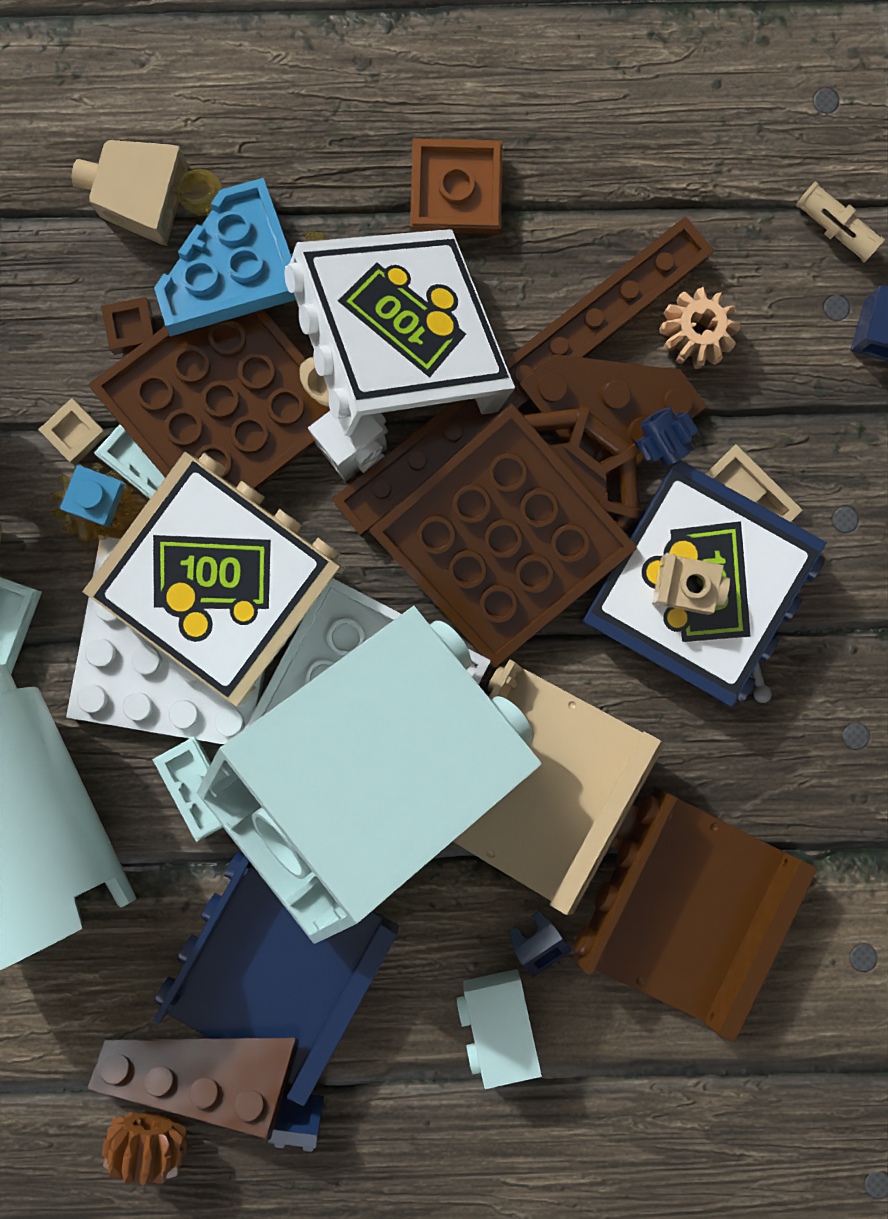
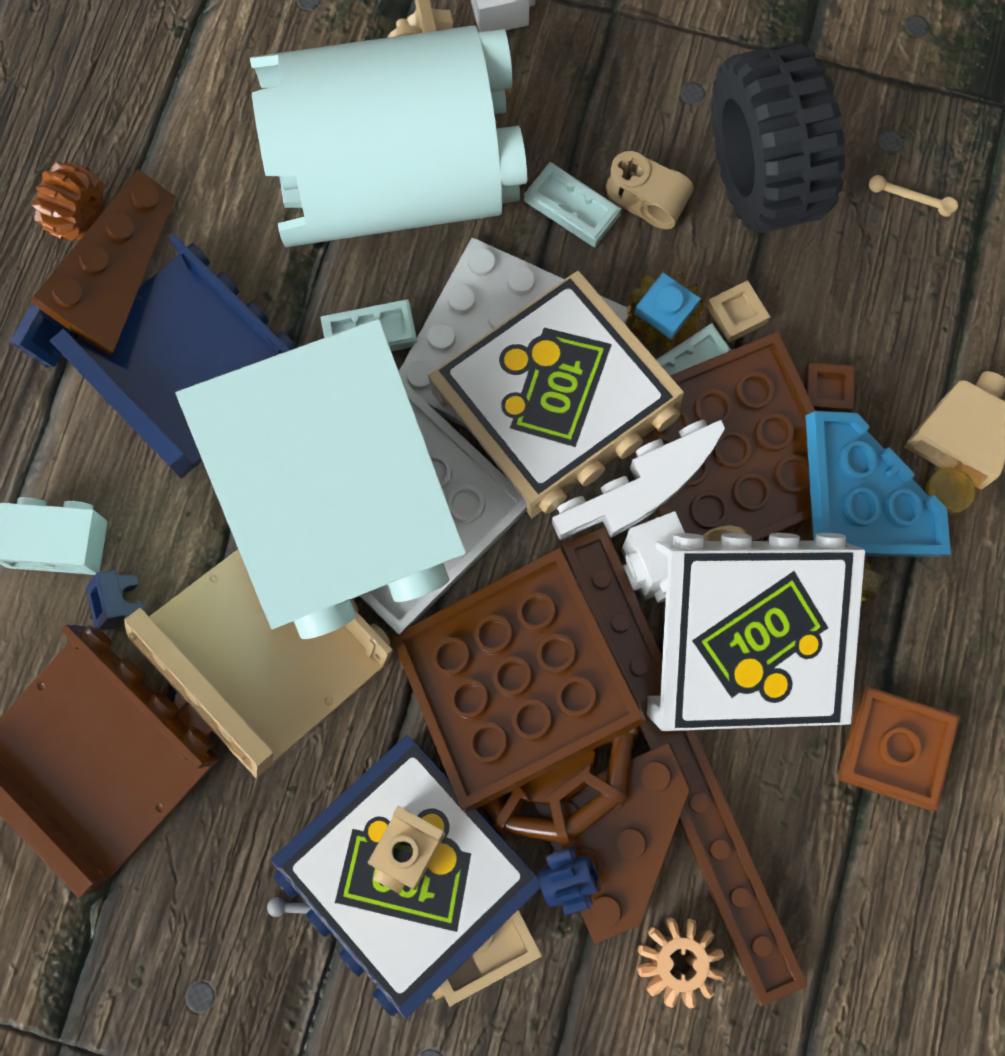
camera: 110 degrees right, 10 degrees down
(271, 456) = (658, 475): none -> white slope

